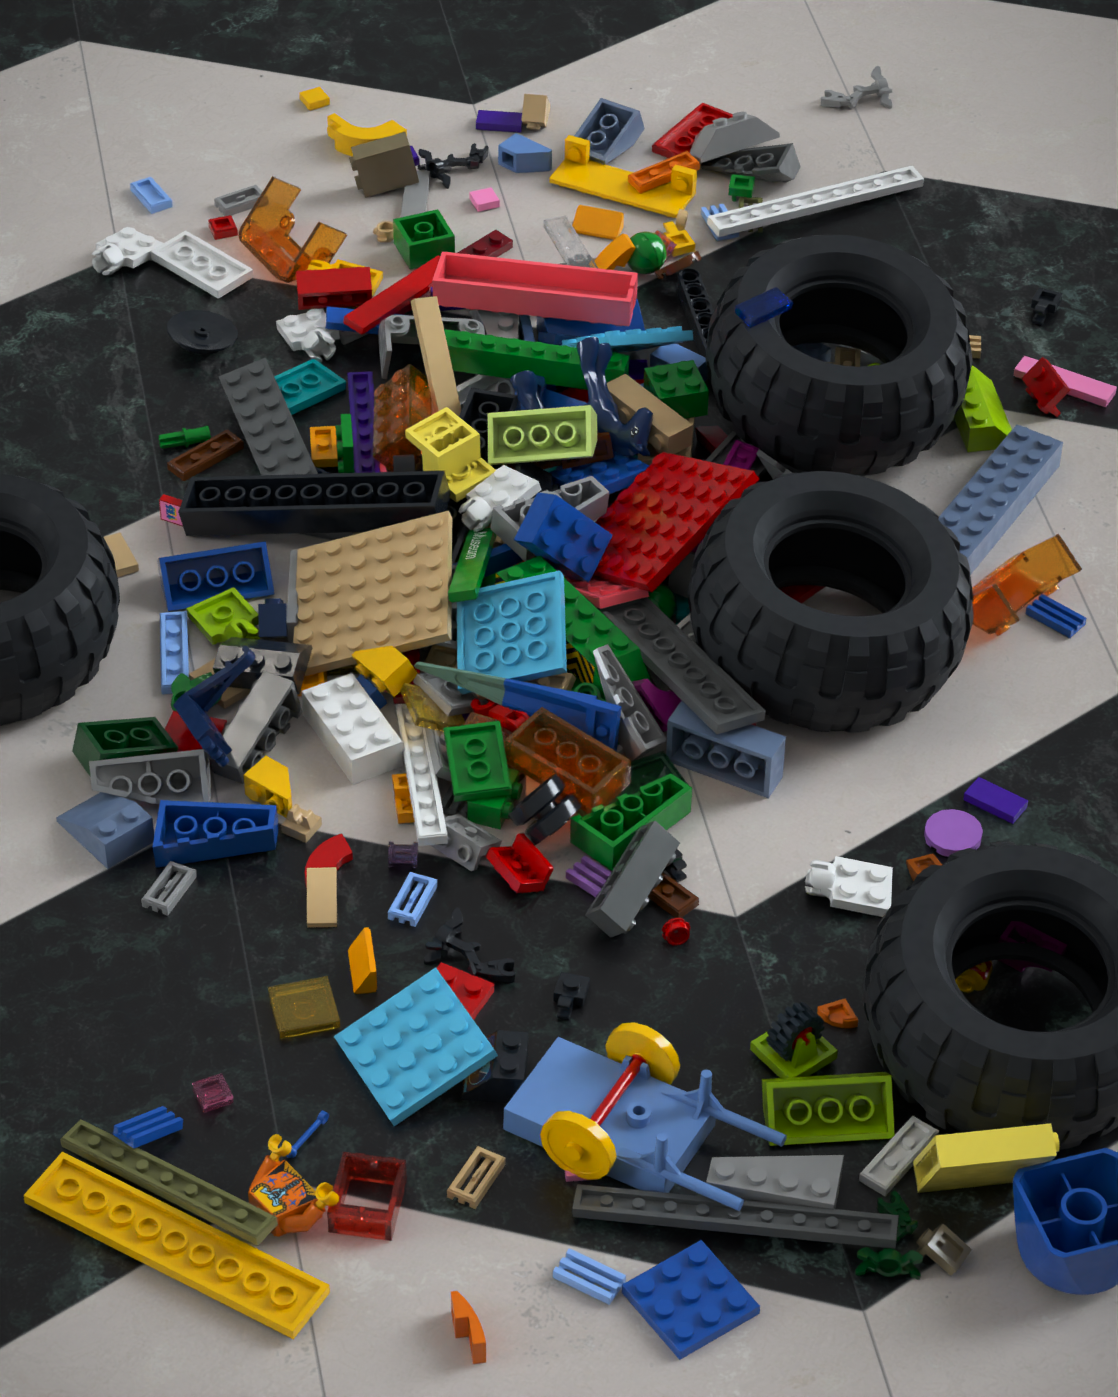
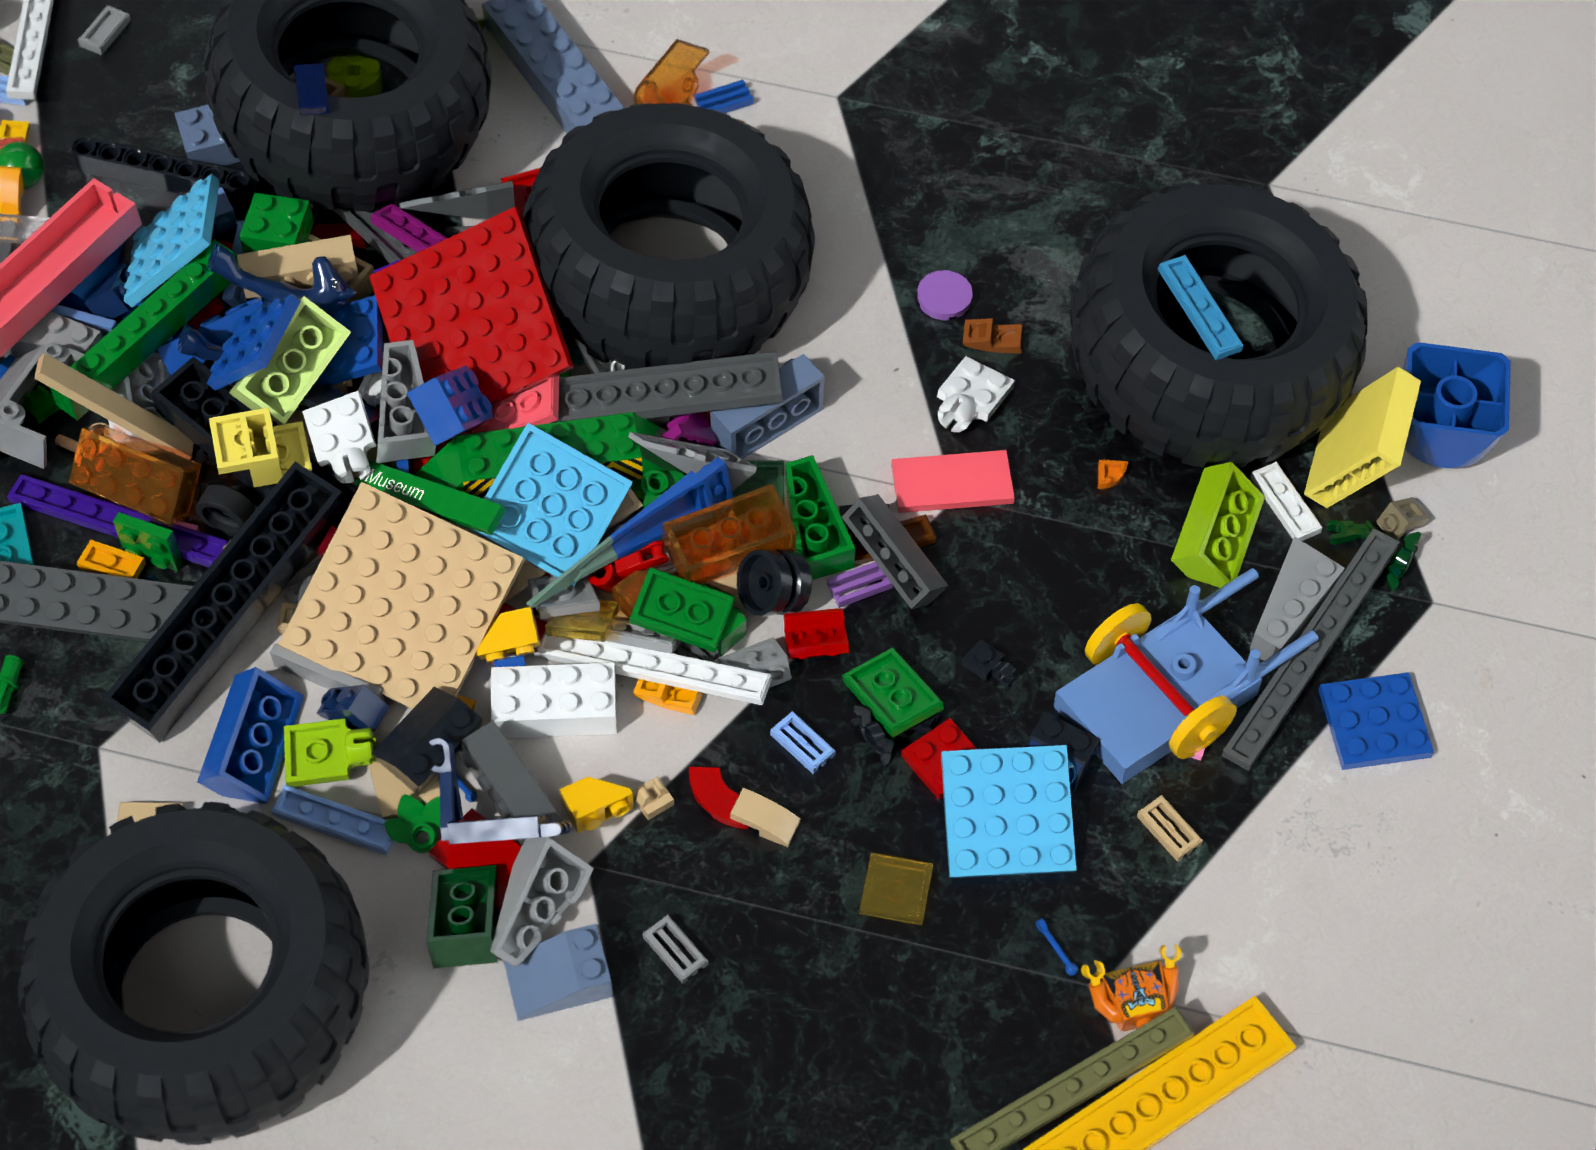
camera: 65 degrees left, 15 degrees up
(148, 1127) = (986, 1061): blue tile -> none
(169, 509) = (121, 738): tile -> none
(205, 455) = (43, 677): reddish brown tile -> none
(212, 831) = (629, 883): blue wedge -> none
(212, 1092) = (972, 1008): clear pink plate -> none
(363, 963) = (869, 815): light orange slope -> none
(365, 1220) = (1173, 901): clear red window -> none
(403, 854) = (747, 725): clear purple bush -> none
(468, 1325) = (1334, 901): orange slope -> none
(494, 934) = (892, 692): none -> green tile
(539, 400) = (253, 342): none -> blue plate
(592, 1273) = (1338, 773): light blue tile -> none
(676, 931) = (957, 548): red plate -> none
(678, 265) = (57, 147): reddish brown tile -> none
(749, 906) = (952, 481): none -> coral tile
(795, 1043) = (1141, 519): plate -> none
(978, 928) = (1200, 307): none -> dark azure tile
(995, 800) = (922, 247): dark purple tile -> none

